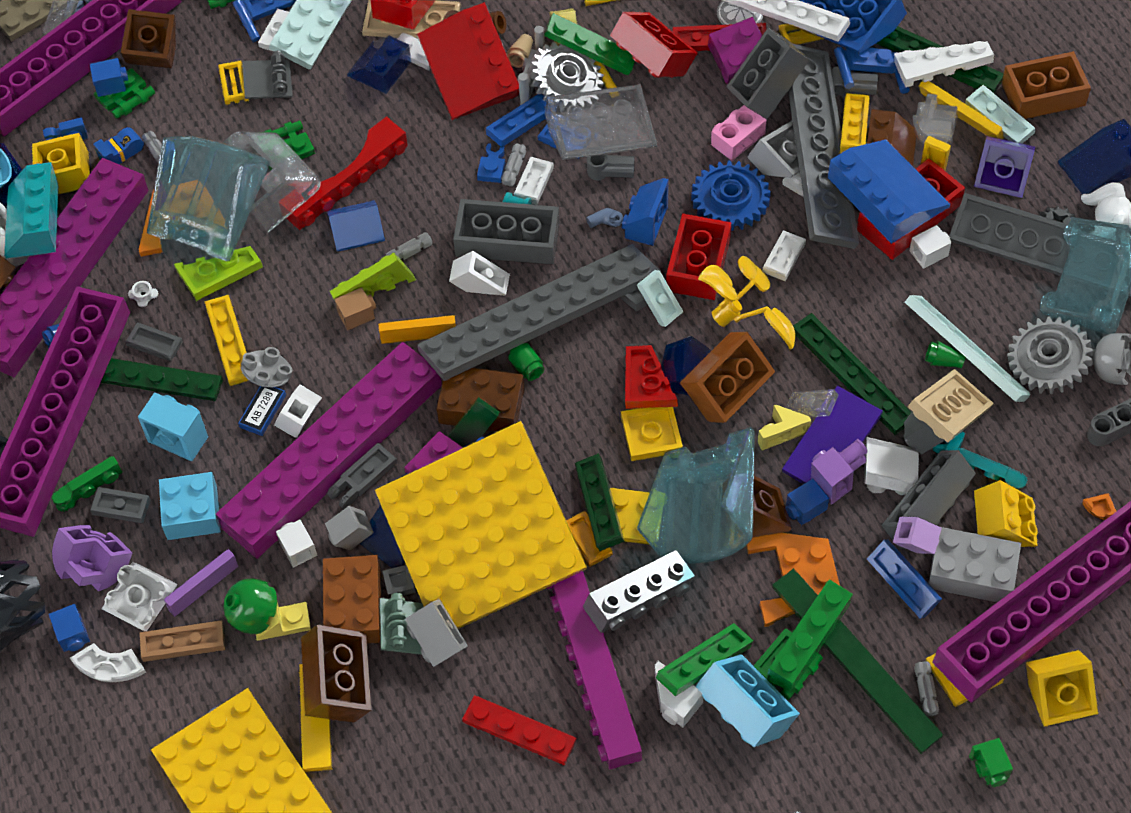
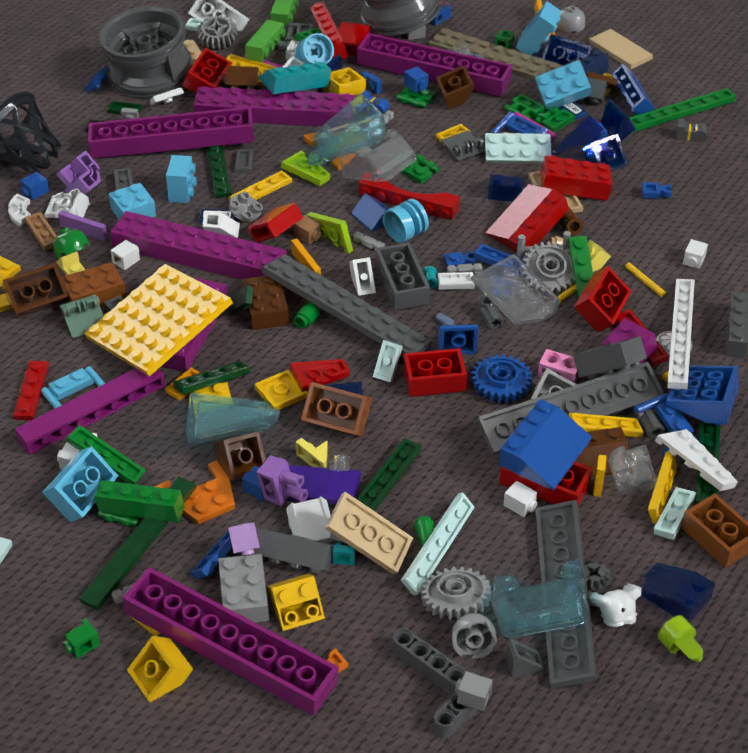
camera: 65 degrees right, 15 degrees down
(86, 484) = (126, 160): green hinge -> none
(142, 287) = (275, 145): white plate -> none
(332, 338) = (275, 222): none -> red brick
(349, 528) = (142, 270): light grey brick -> none
(362, 475) = (190, 268): dark grey hinge -> none
(406, 190) = (405, 220): none -> medium azure wheel
(435, 633) = (80, 325): light grey brick -> none
(531, 677) = (70, 384): none -> medium azure plate
(638, 592) = (145, 409): brick -> none
(730, 307) = (394, 423): yellow plant -> none
(784, 255) = (463, 420): white plate -> none
(994, 469) = (336, 582): teal hinge -> none
(1004, 166) = (626, 525): slope -> none

